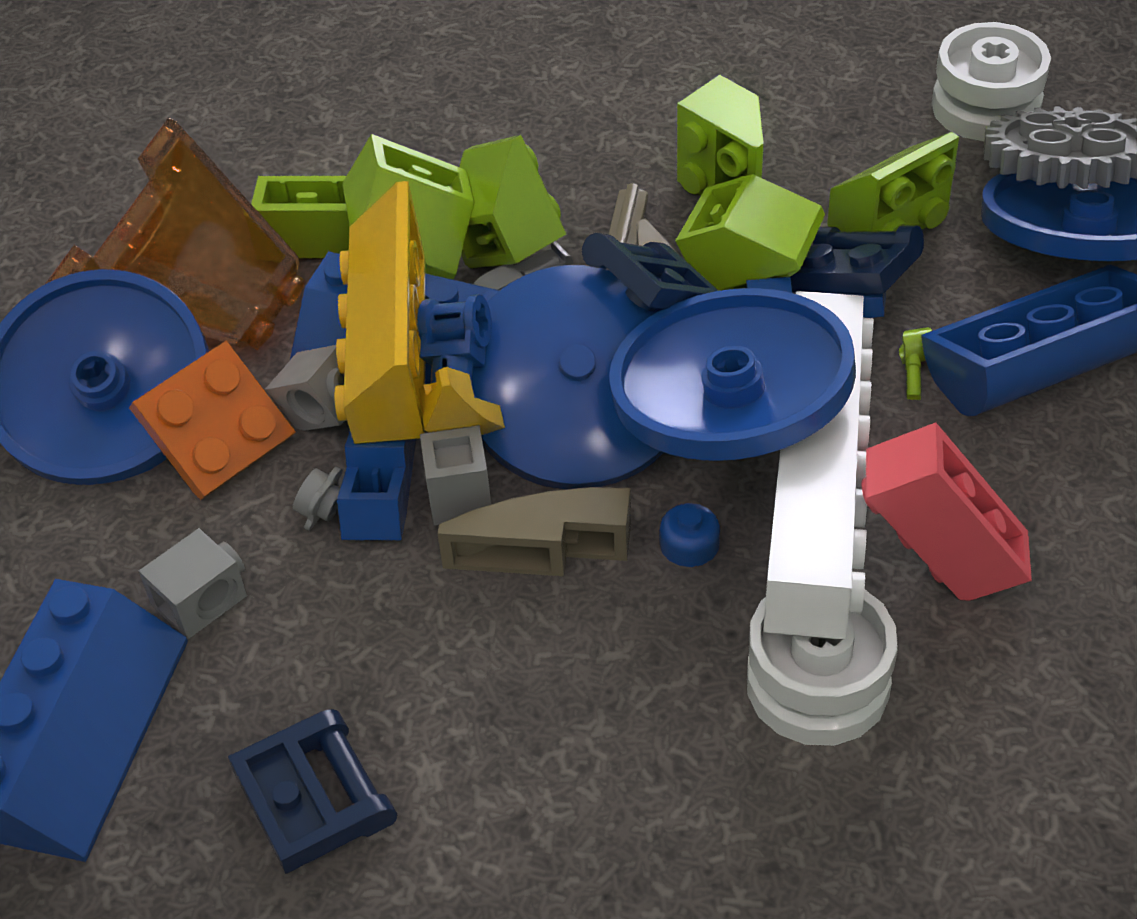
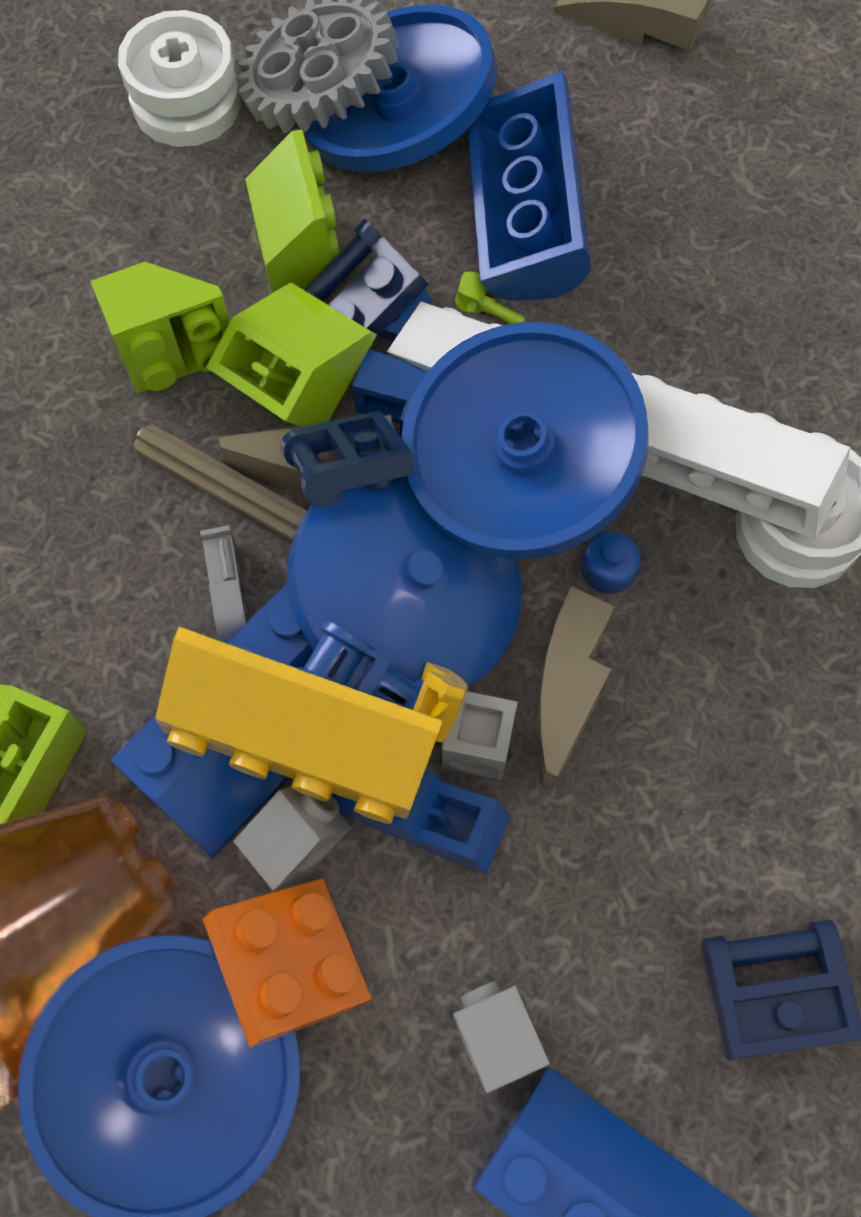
camera: 70 degrees left, 20 degrees up
(318, 496) = (434, 878): light grey plate -> none
(438, 193) = (102, 653): lime slope -> none
(510, 206) = (140, 562): lime slope -> none
(947, 513) = (731, 352): coral brick -> none

